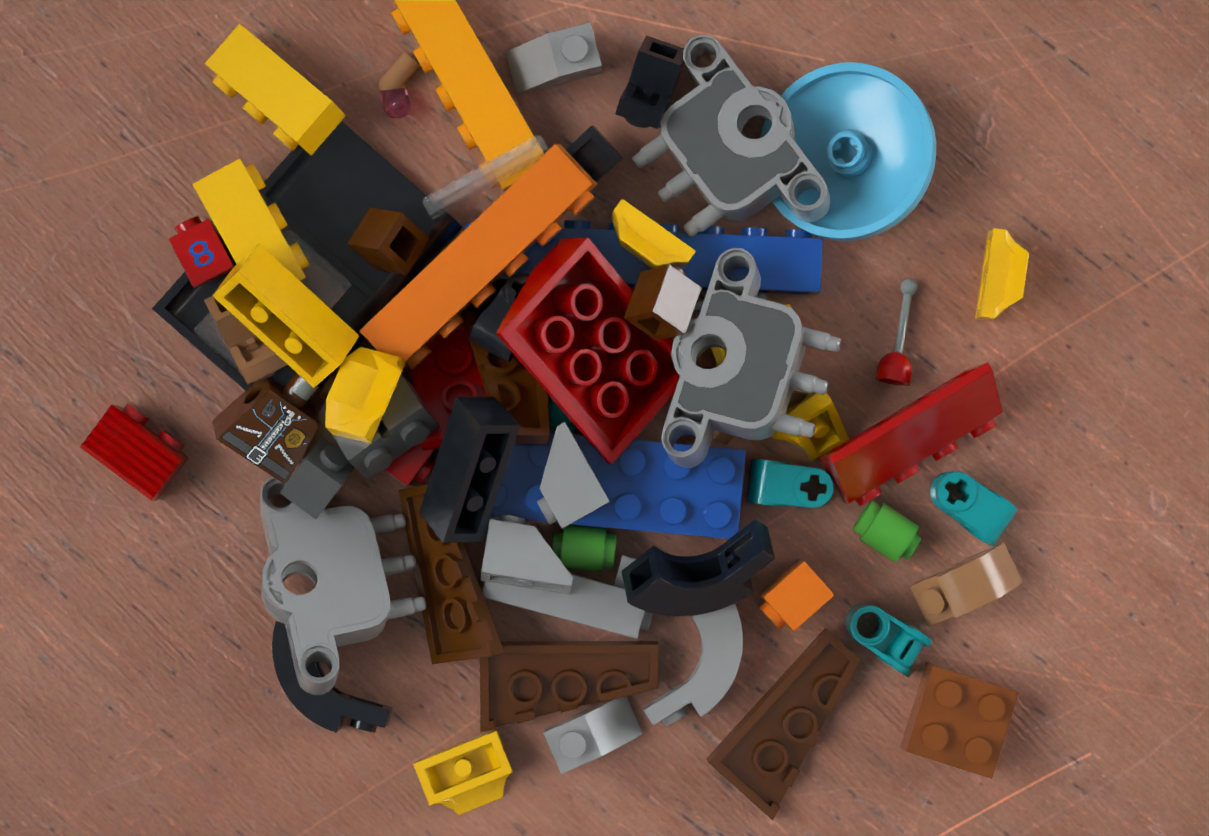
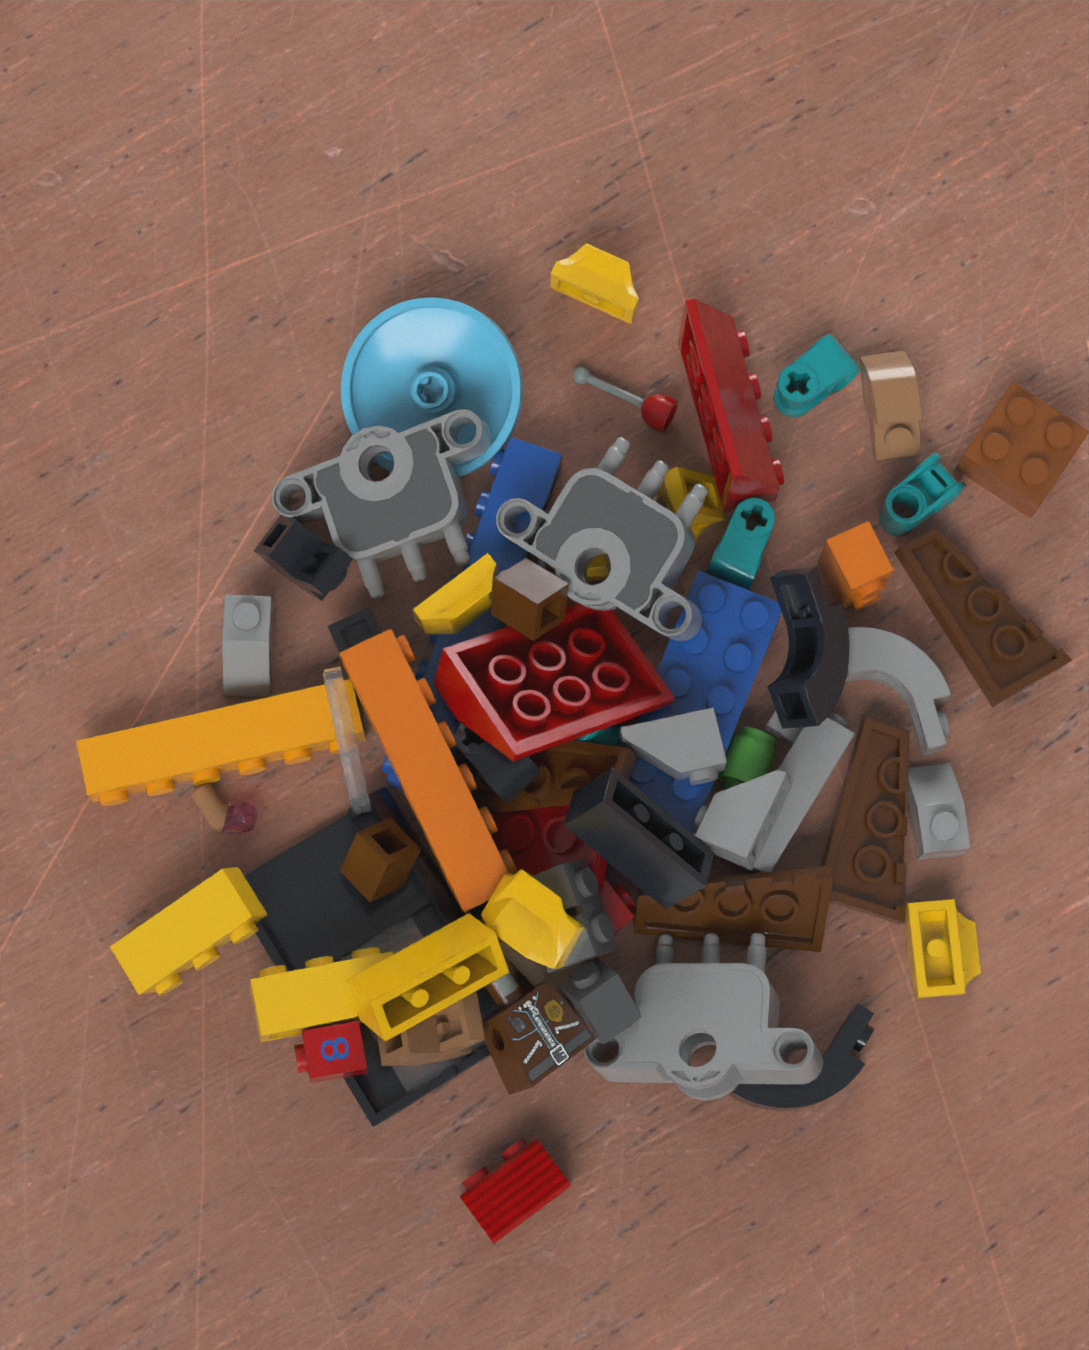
camera: 75 degrees left, 10 degrees down
(887, 531) = (816, 464): bright green brick -> none

